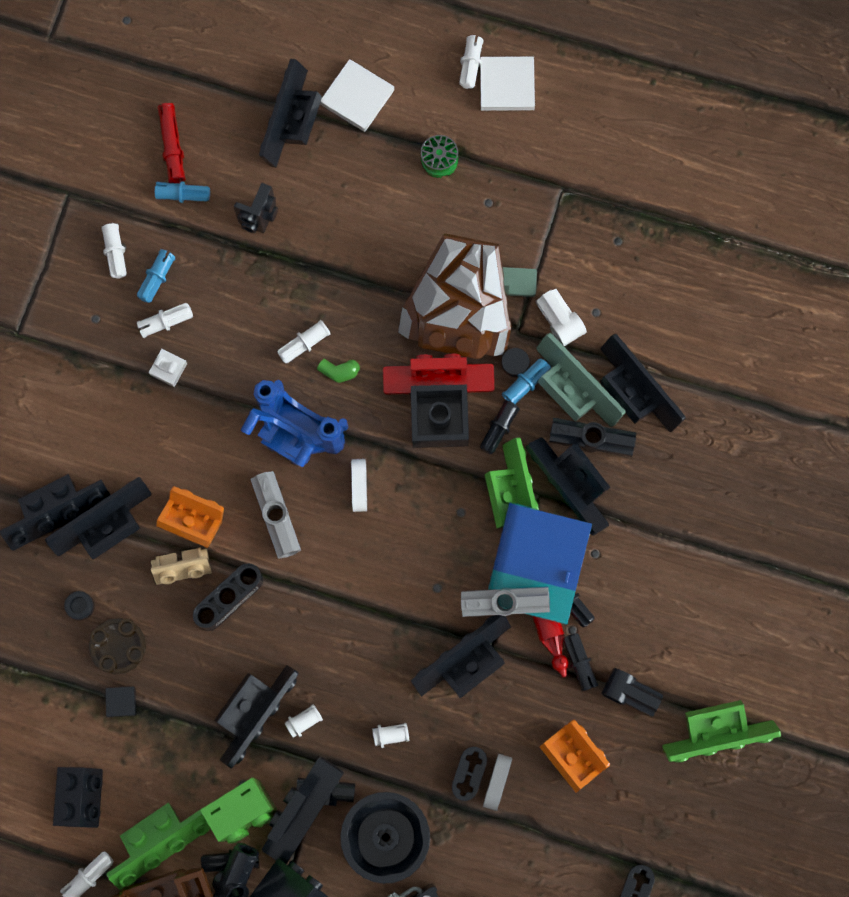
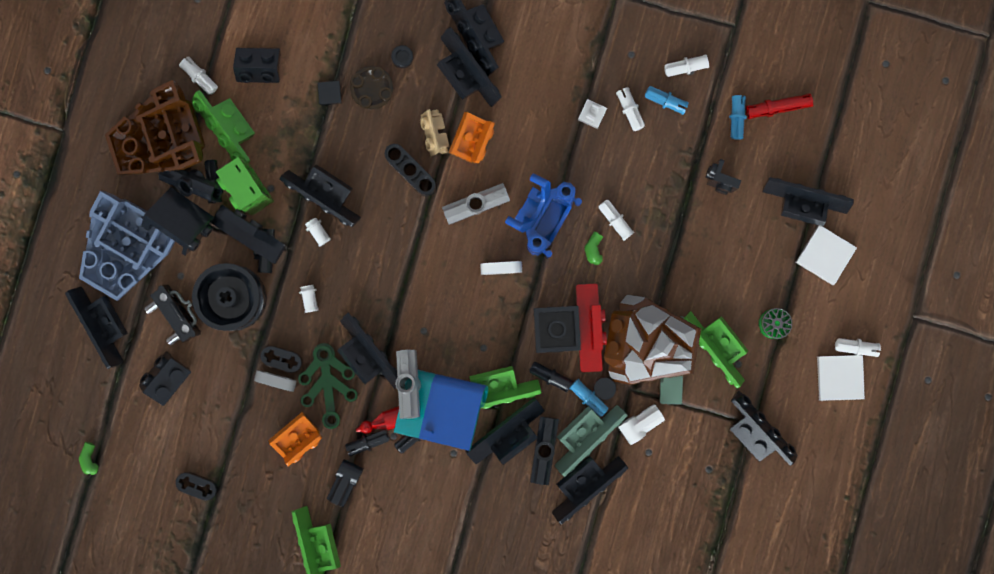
camera: 85 degrees right, 10 degrees up
(468, 215) = (722, 346): none -> bright green bracket
(500, 713) = (326, 382): none -> dark green plant
(574, 181) = (757, 432): none -> black bracket

